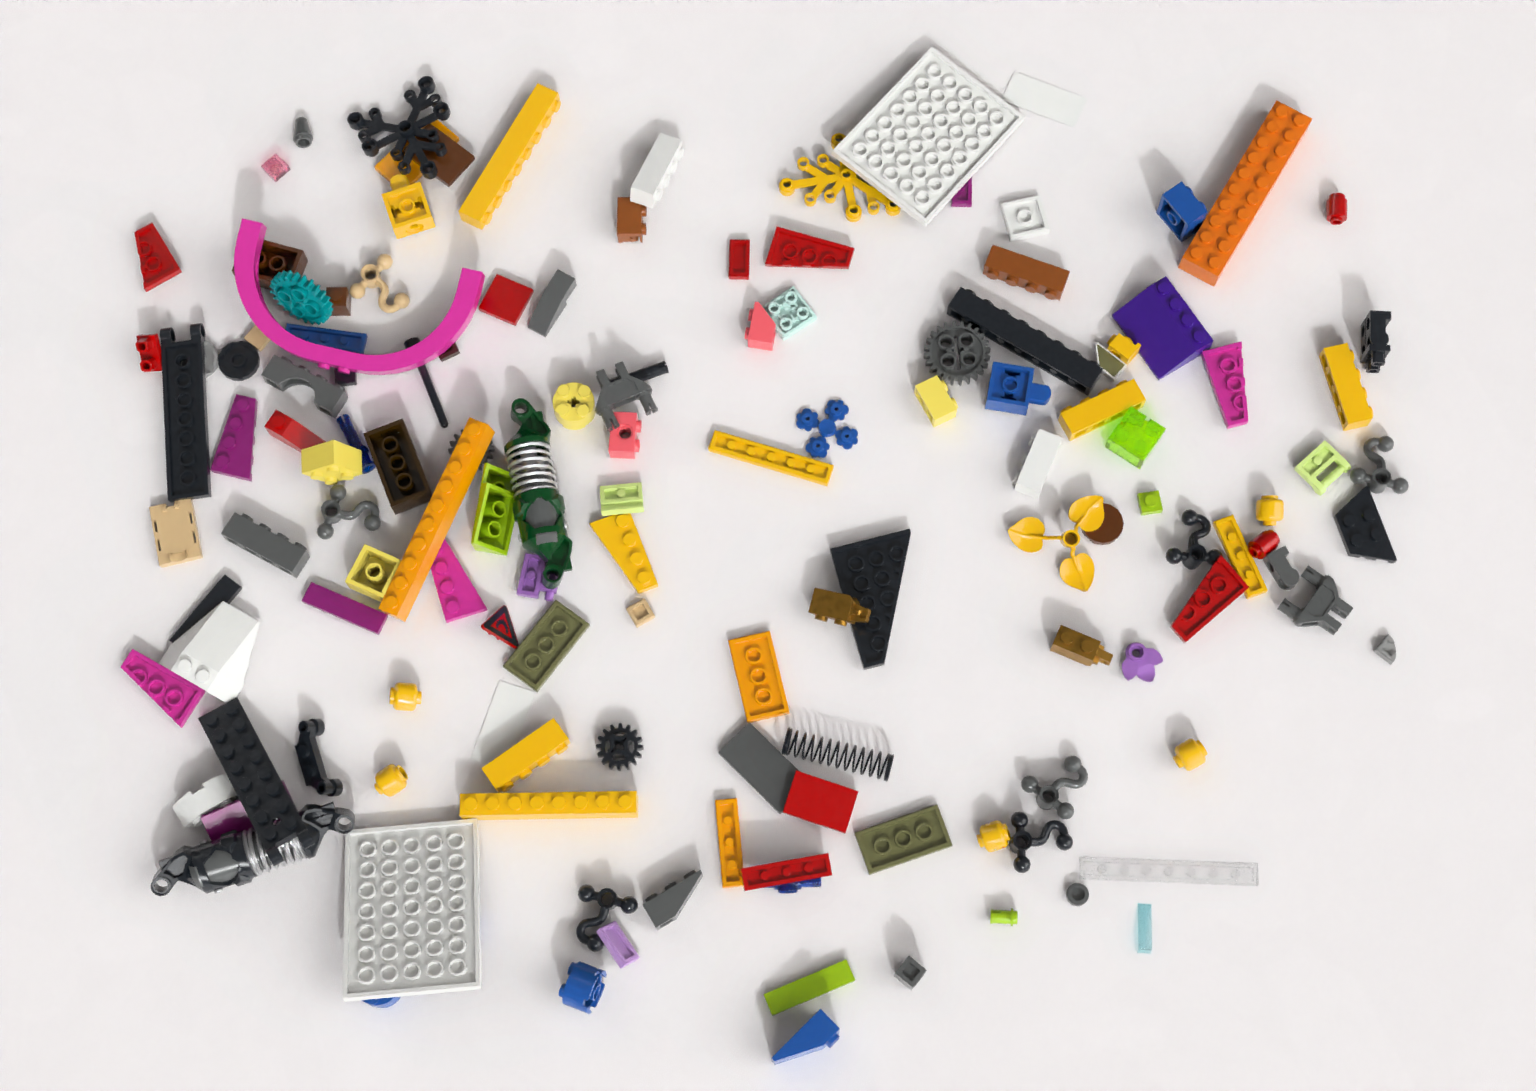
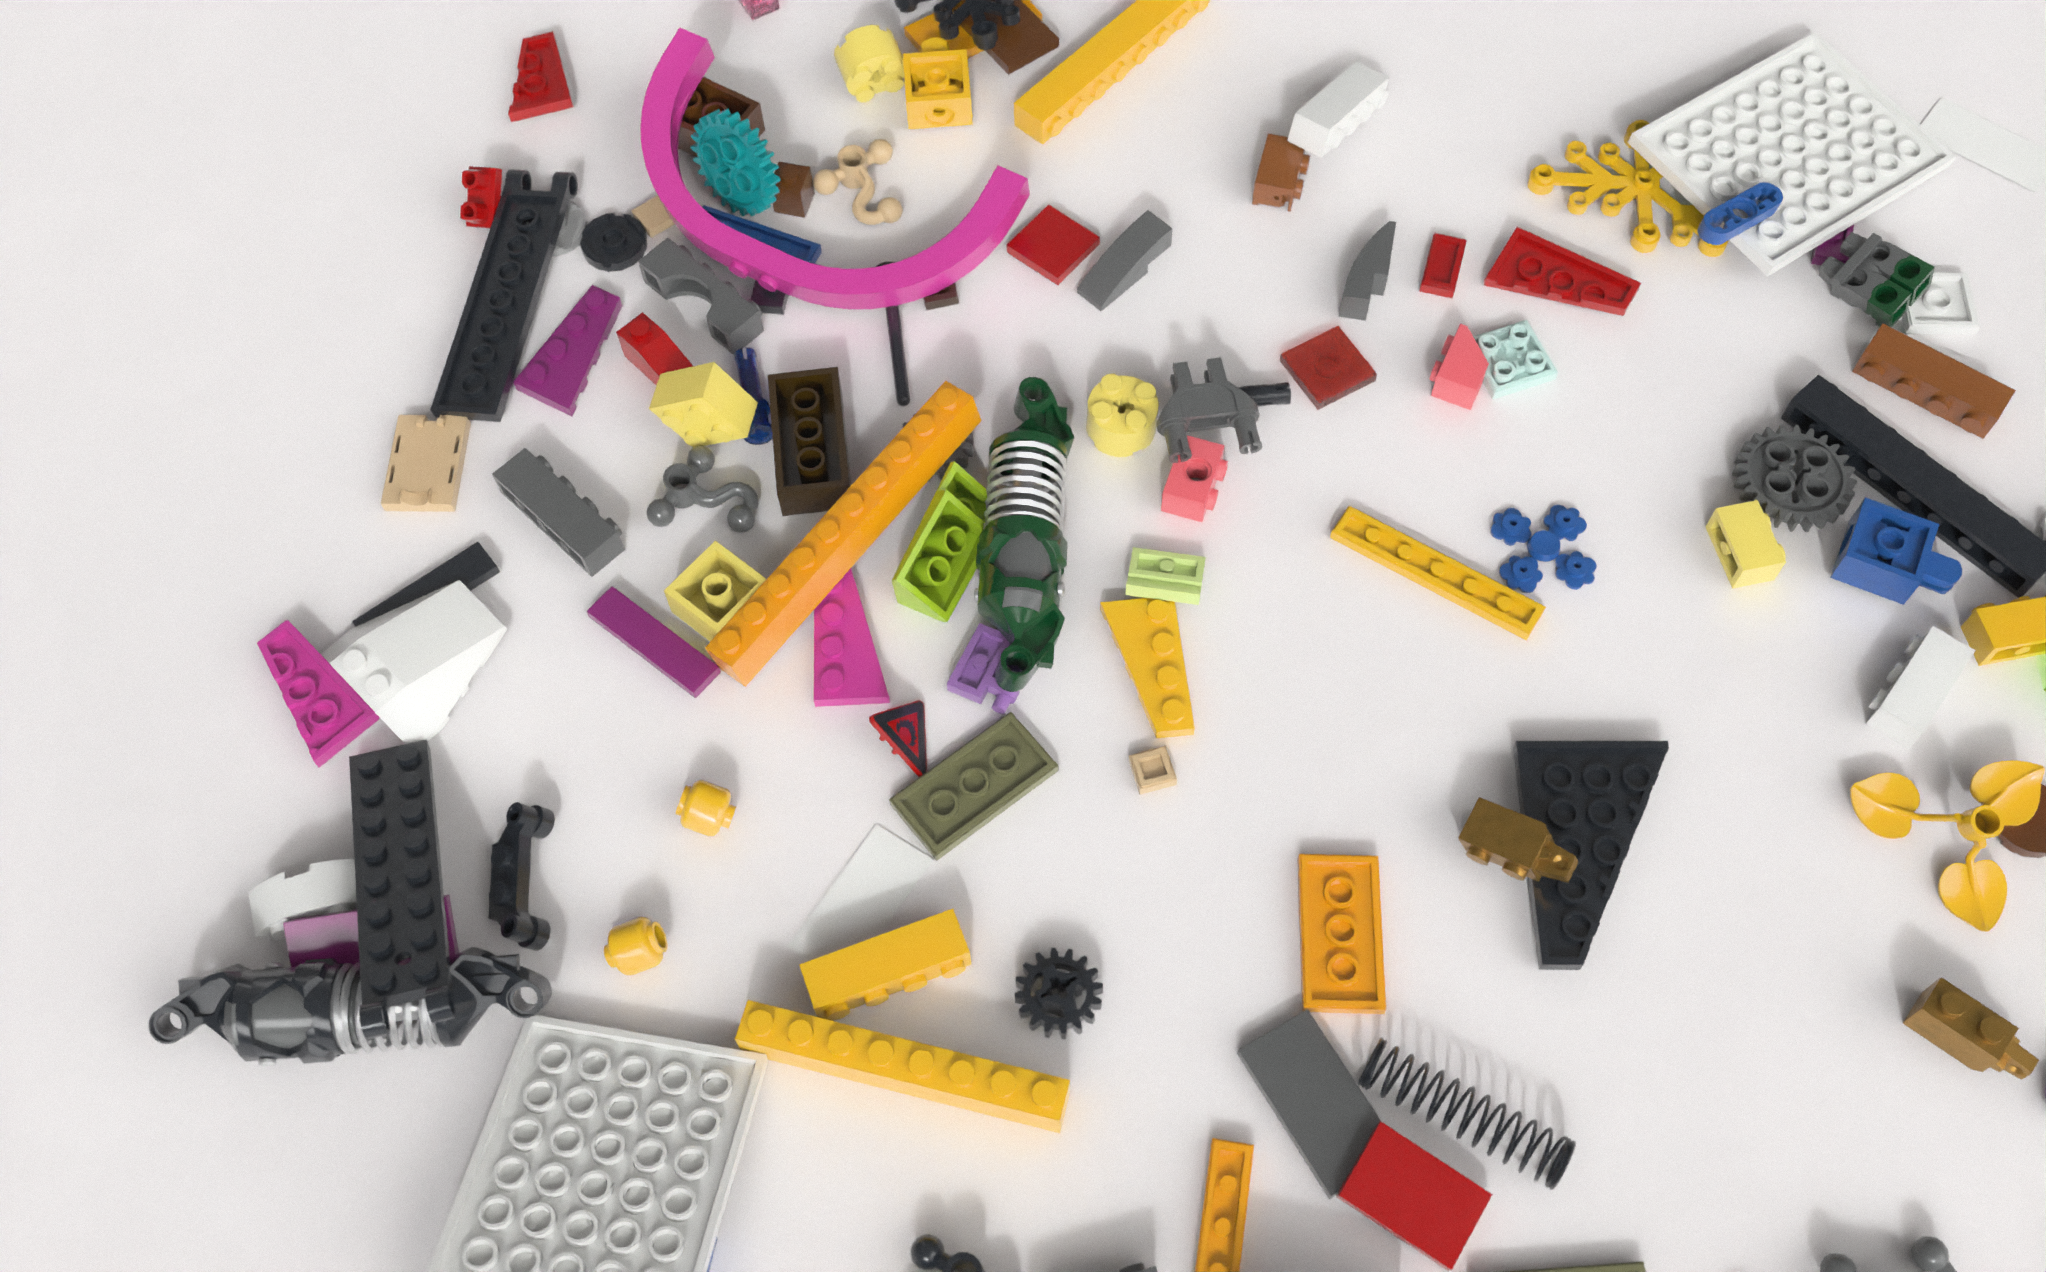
camera: 15 degrees right, 10 degrees down
(361, 202) = (870, 62): none -> light yellow brick
(685, 343) = (1328, 367): none -> clear red tile
(696, 277) = (1368, 274): none -> dark grey slope
(902, 184) = (1746, 201): none -> blue beam
(978, 213) = (1877, 277): none -> hips

